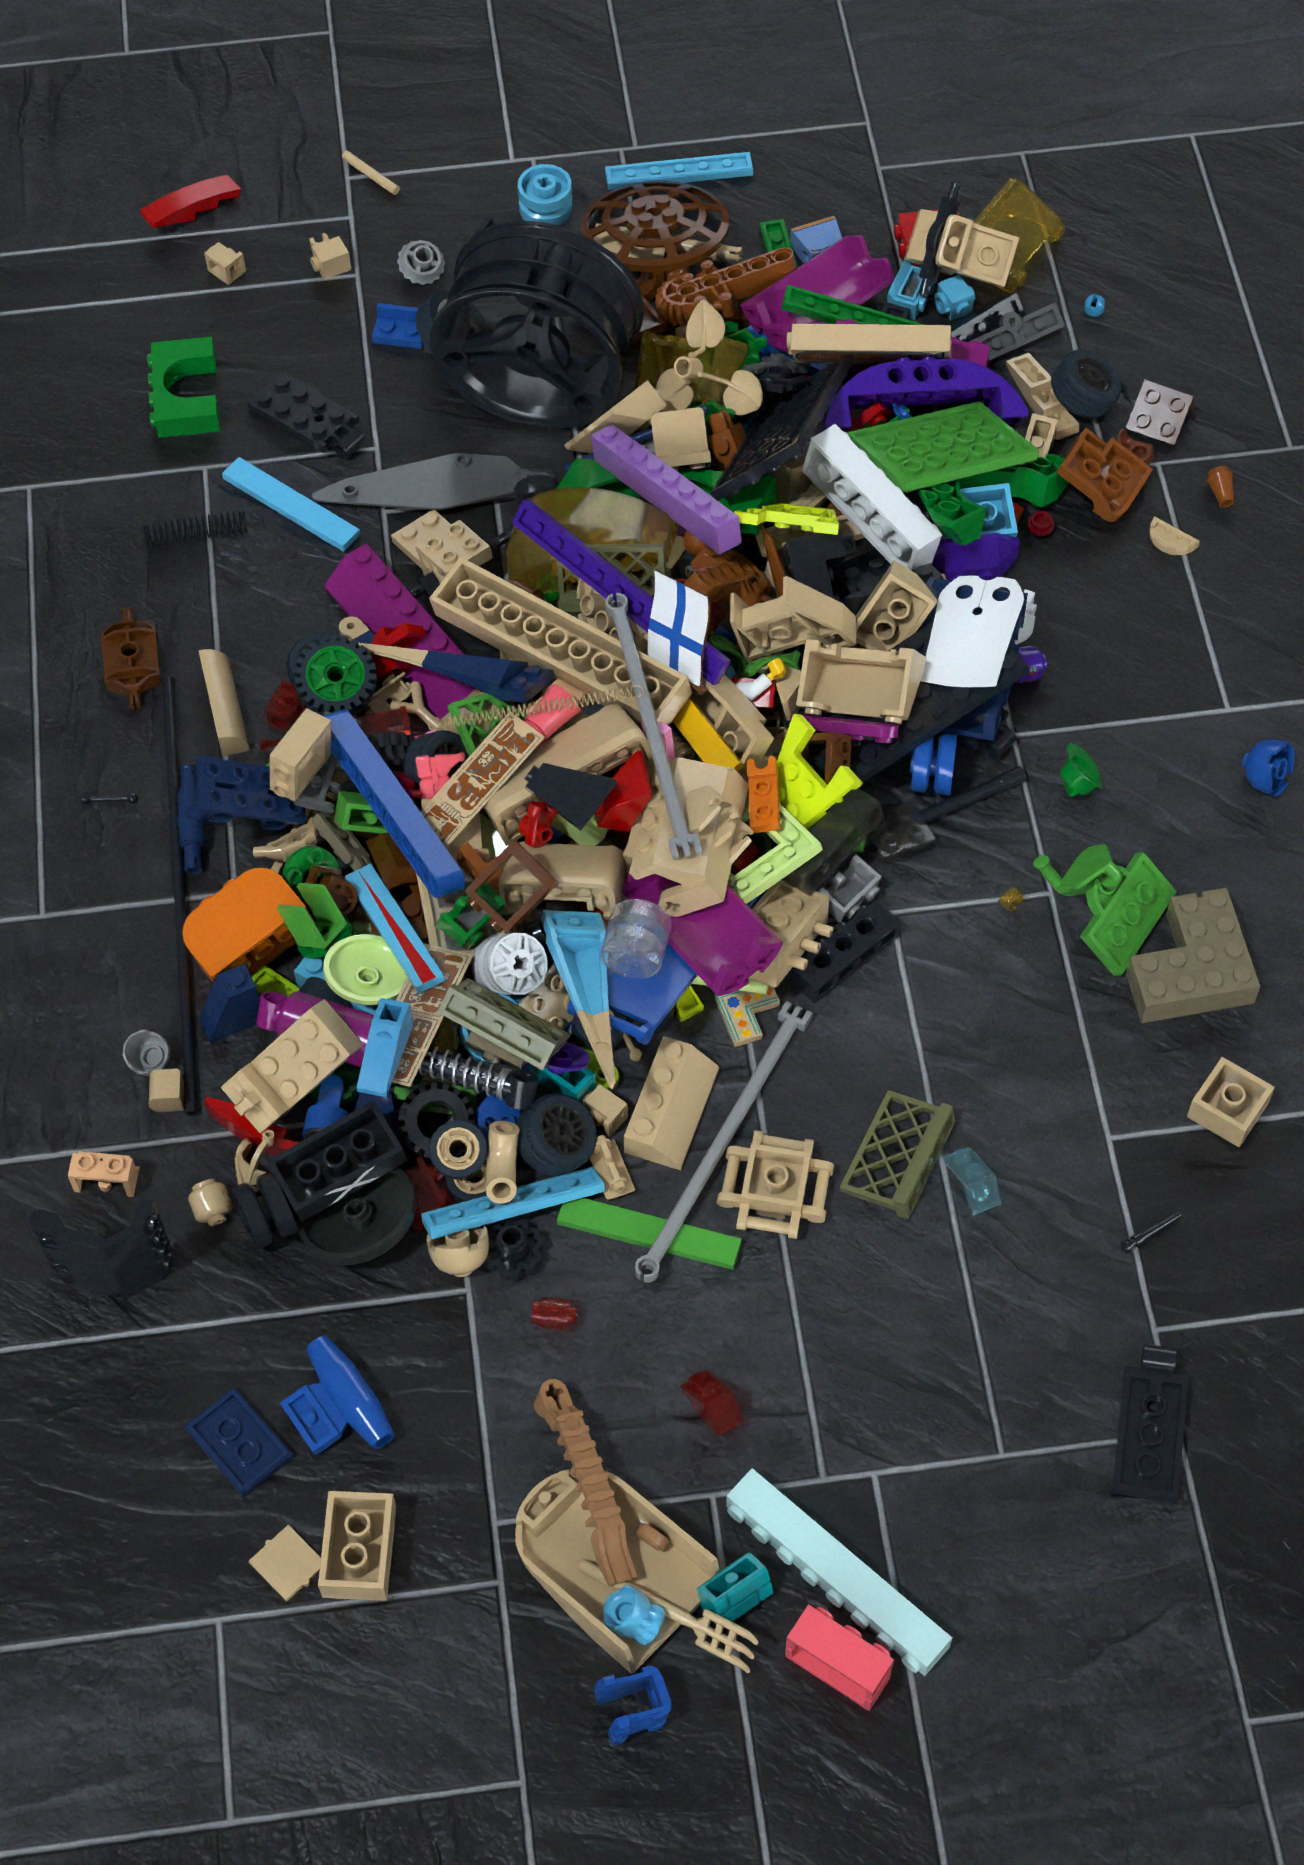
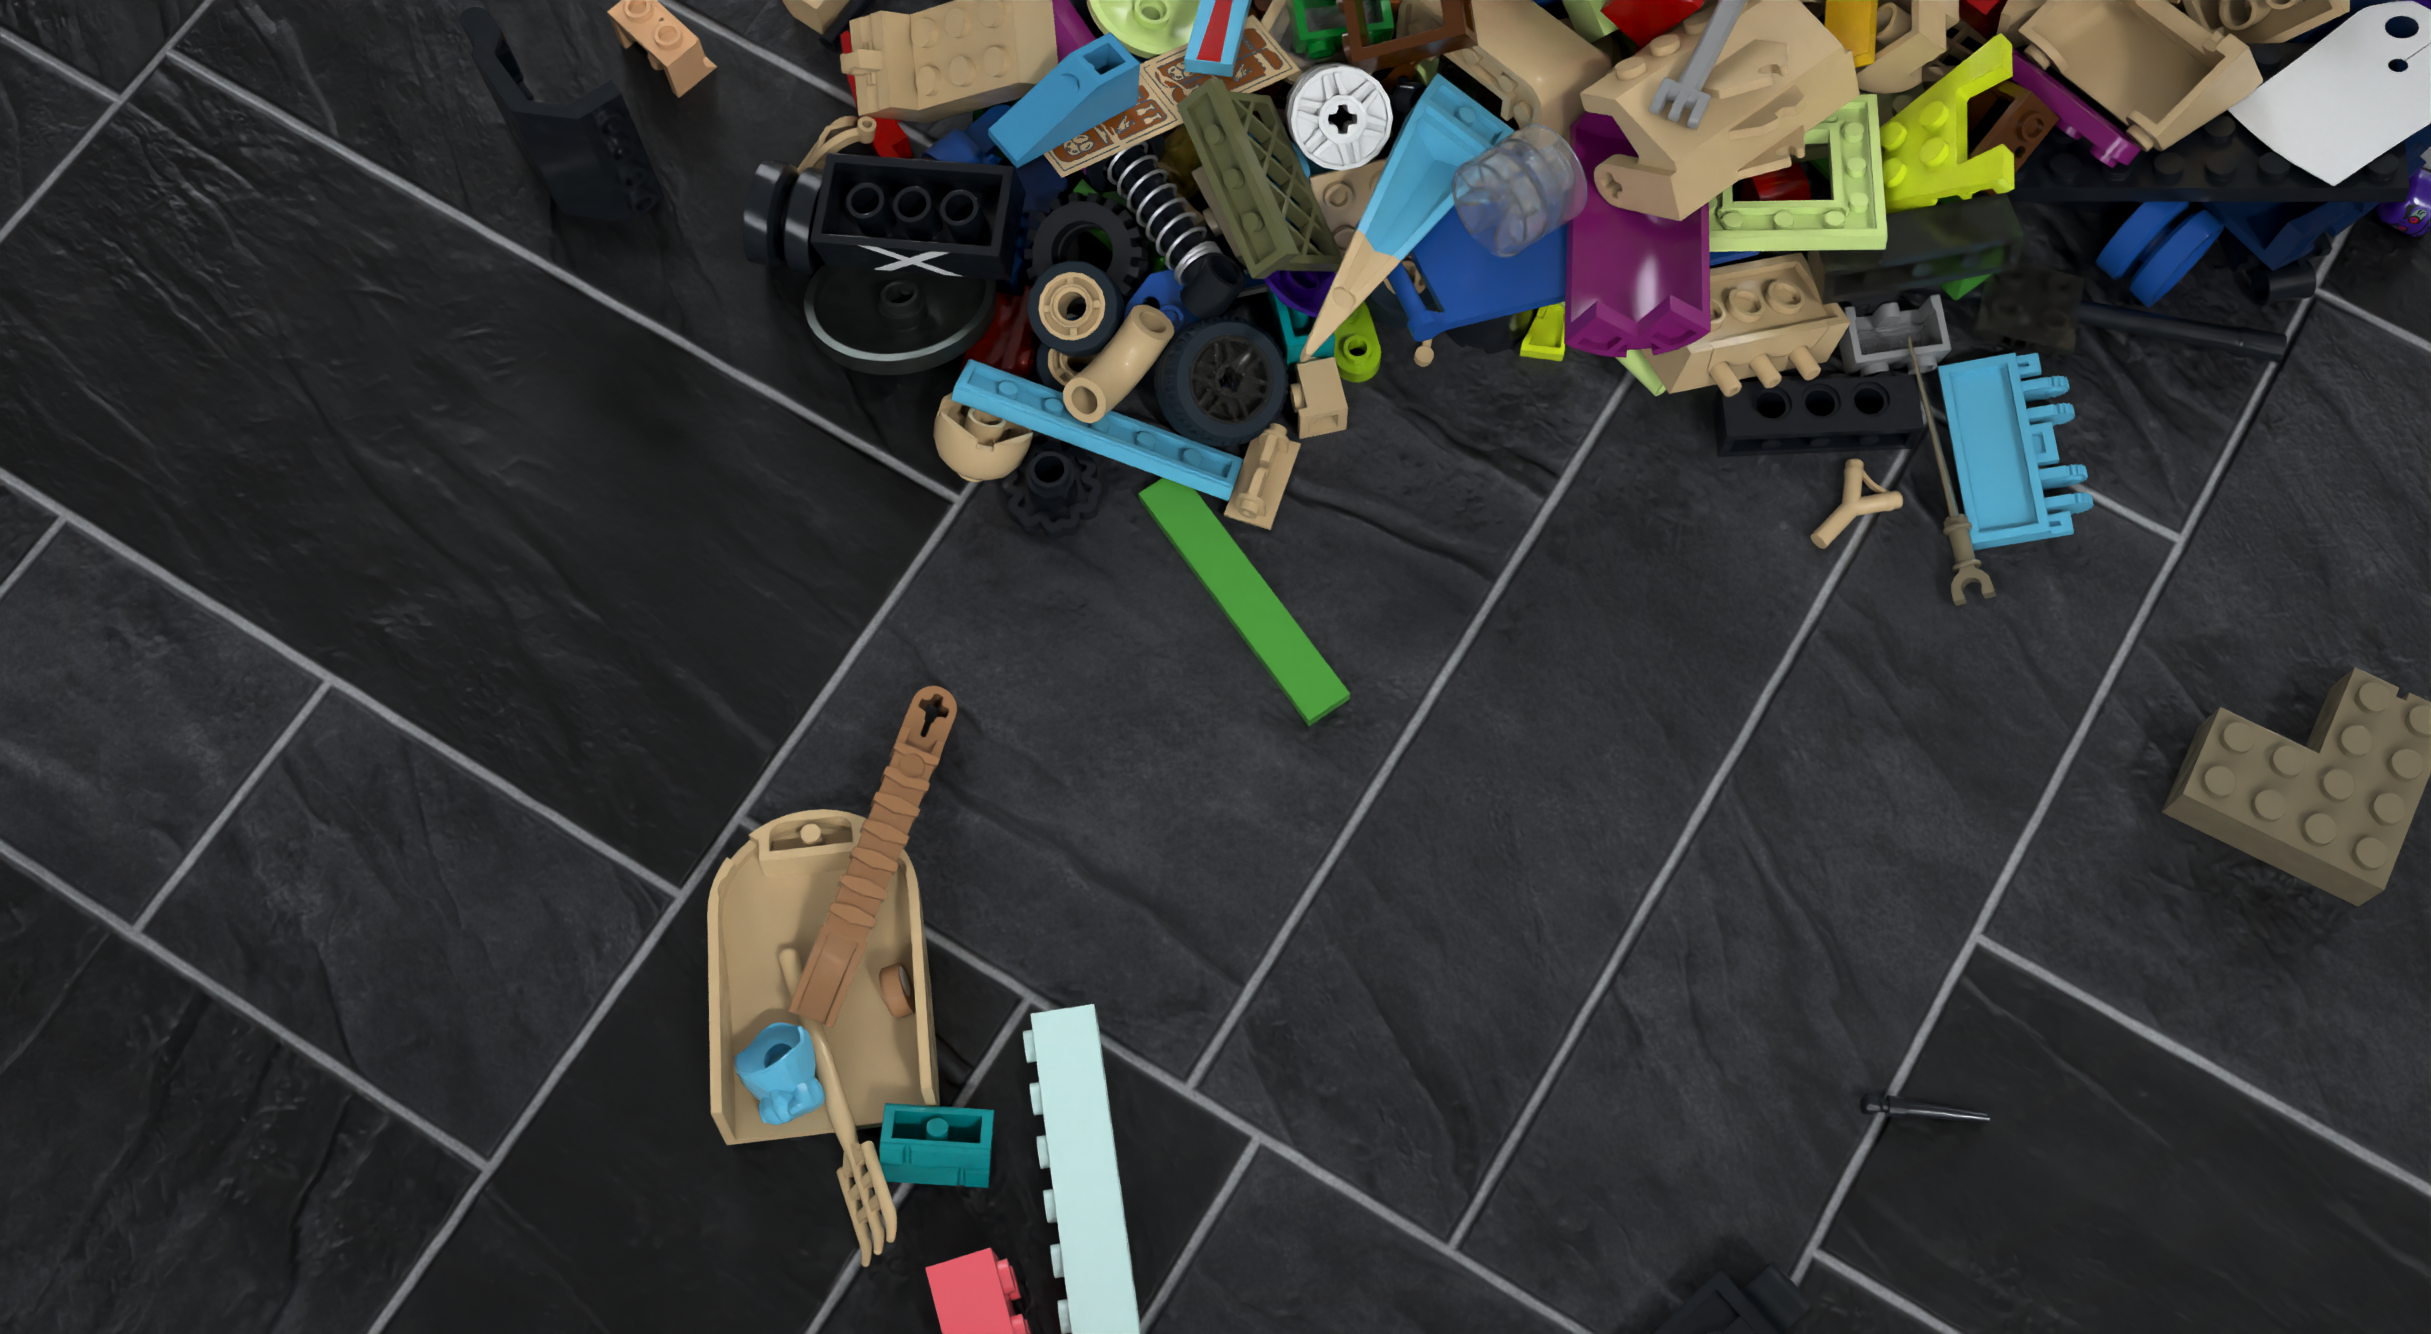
camera: 40 degrees right, 10 degrees up
(210, 1202) = (740, 159): tan head -> none
(238, 1442) = (535, 481): dark blue tile -> none
(286, 1563) = (462, 672): tan piece -> none
(339, 1399) = (679, 520): blue plate -> none
(357, 1545) = (543, 714): tan brick -> none
(554, 1313) = (1030, 608): clear red brick -> none
(651, 1680) = (672, 1141): blue piece -> none
(670, 1104) = (1409, 450): tan slope -> none
(713, 1402) = (1126, 877): clear red slope -> none
(722, 1140) = (1379, 568): light grey hinge -> none
(739, 1010) = (1603, 395): tan tile -> none
(764, 796) = (1866, 121): orange plate -> none
(775, 1183) = (1455, 654): tan brick -> none
(895, 980) = (1854, 504): none -> tan piece
(920, 1165) = (1671, 776): olive fence -> none
(939, 906) = (2003, 444): none -> medium azure hinge
(949, 957) = (1957, 524): none -> dark tan sword
(977, 1179) = (1730, 850): clear light blue bracket -> none
(1010, 897) = (2115, 506): clear yellow hinge -> none
(1079, 772) = (2368, 402): green piece -> none
(1122, 900) = (2271, 617): bright green plate -> none
(1230, 1101) = (2197, 1020): tan brick -> none

